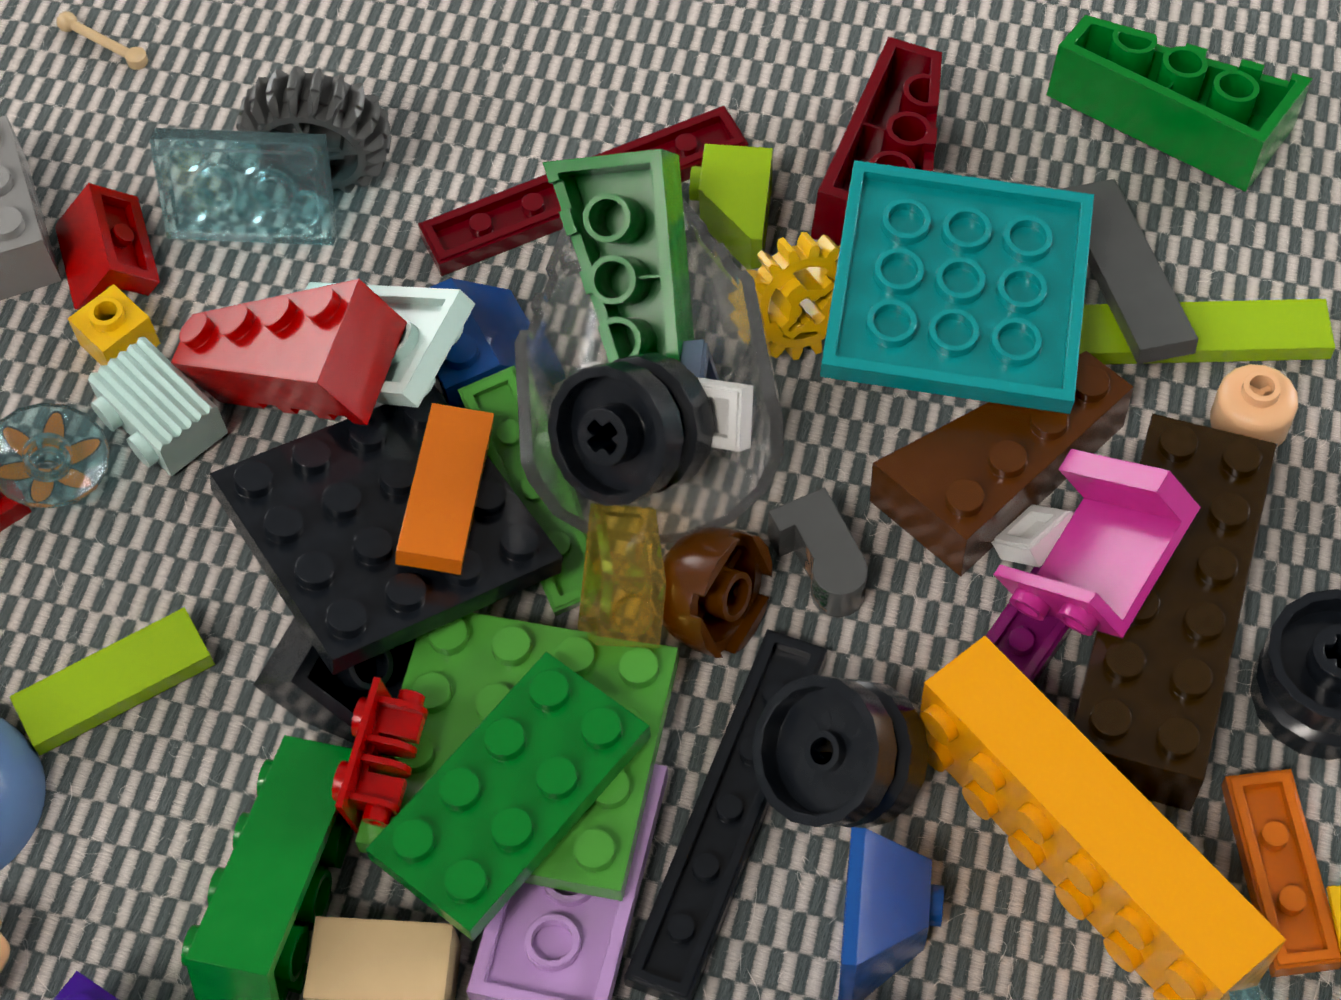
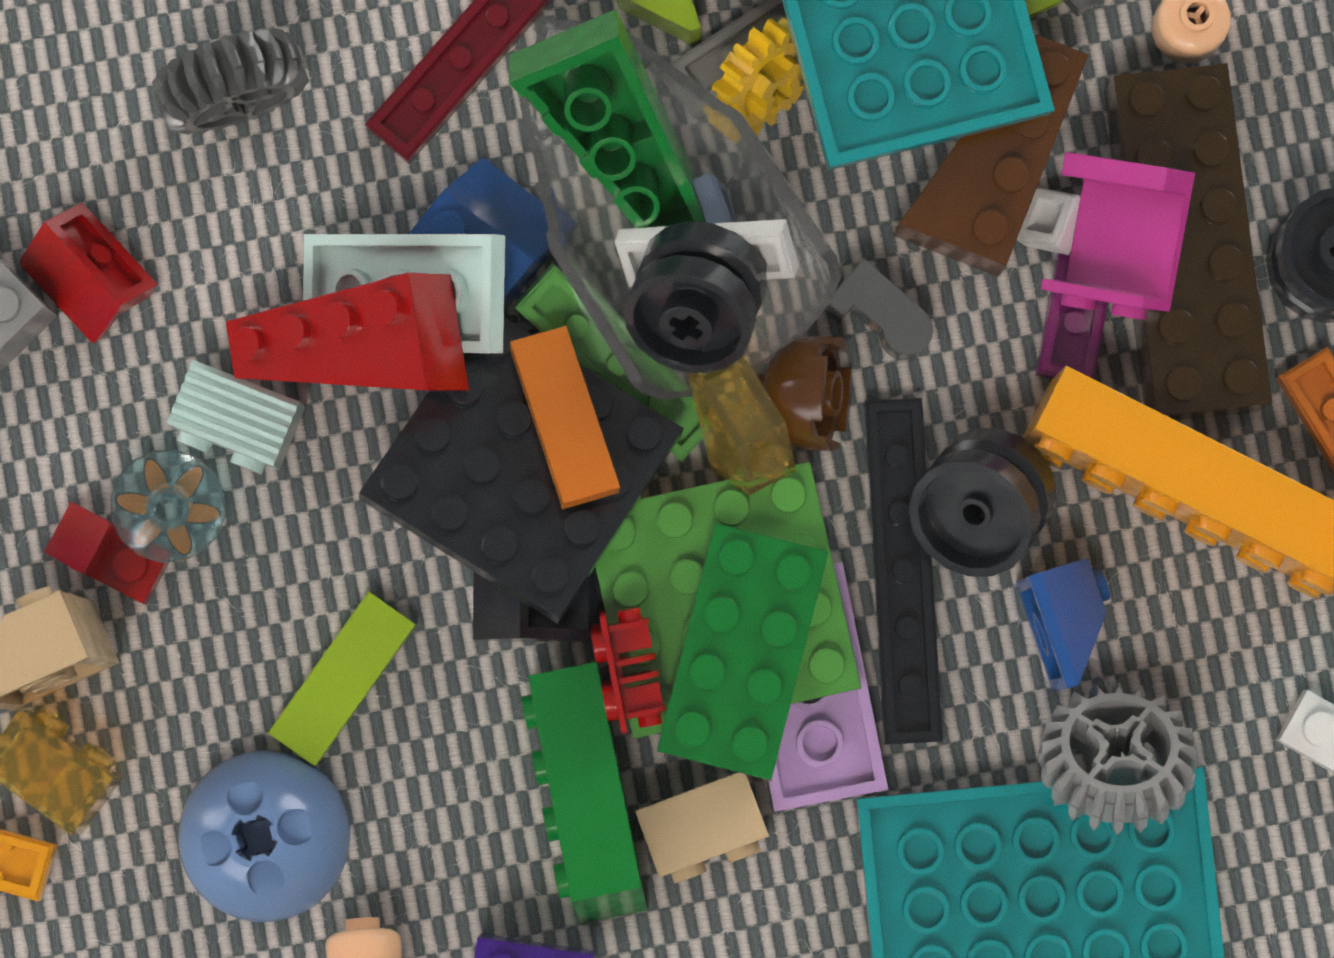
camera: 30 degrees left, 25 degrees up
(110, 325) = (162, 368): yellow plate -> none
(244, 186) = (195, 165): clear light blue plate -> none

